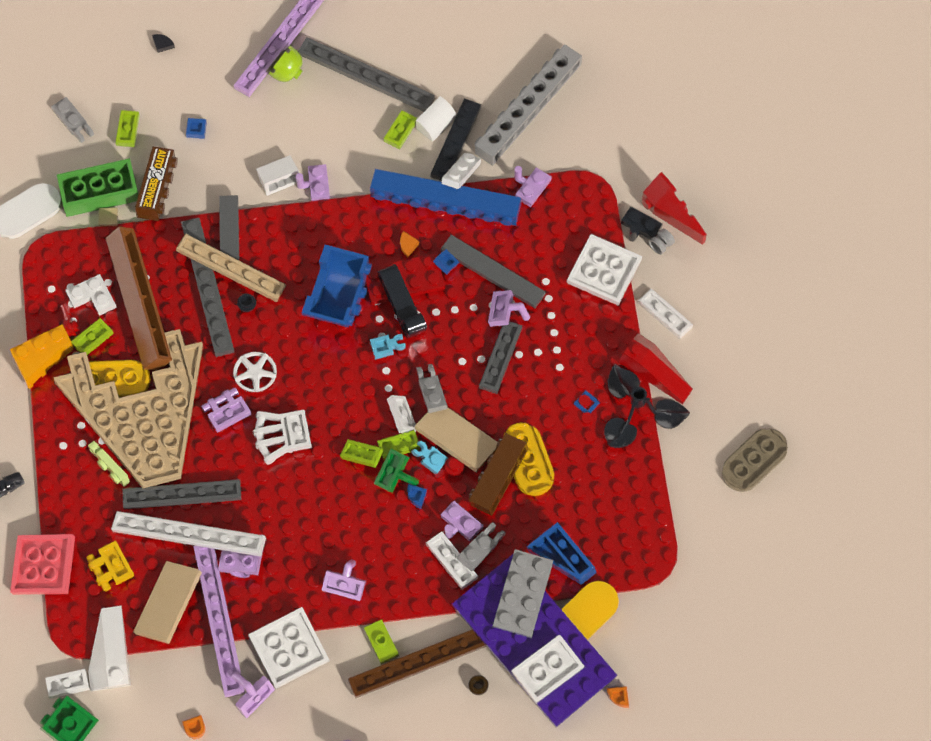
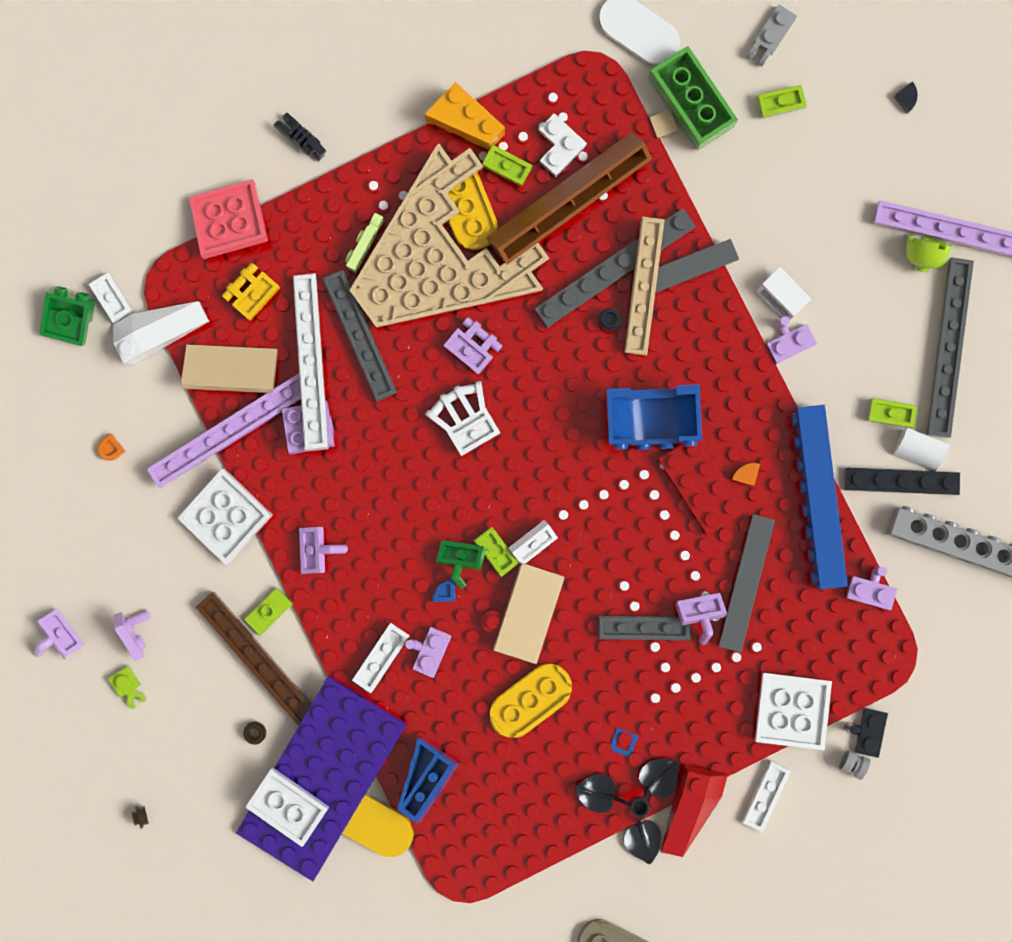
camera: 70 degrees right, 20 degrees up
(71, 327) = (511, 137): red plate -> none
(155, 183) = (721, 160): reddish brown brick -> none
(196, 128) = (811, 178): blue tile -> none
(255, 371) = (530, 360): white wheel -> none
(255, 694) = (156, 497): lavender plate -> none
(361, 453) = (471, 514): lime plate -> none
(384, 346) = (609, 492): medium azure plate -> none
(401, 301) = (666, 495): black beam -> none
(431, 390) = (572, 566): light grey hinge -> none
(431, 459) = (492, 593): medium azure plate -> none
(446, 261) = (738, 526): blue tile -> none
(461, 170) = (860, 503): white plate -> none
(480, 548) = (404, 684): light grey hinge -> none
(498, 474) = (496, 676): reddish brown brick -> none
(523, 593) = (361, 752): light grey plate -> none
(618, 696) = (294, 888): orange tile -> none
(664, 204) = (904, 752): red wedge -> none

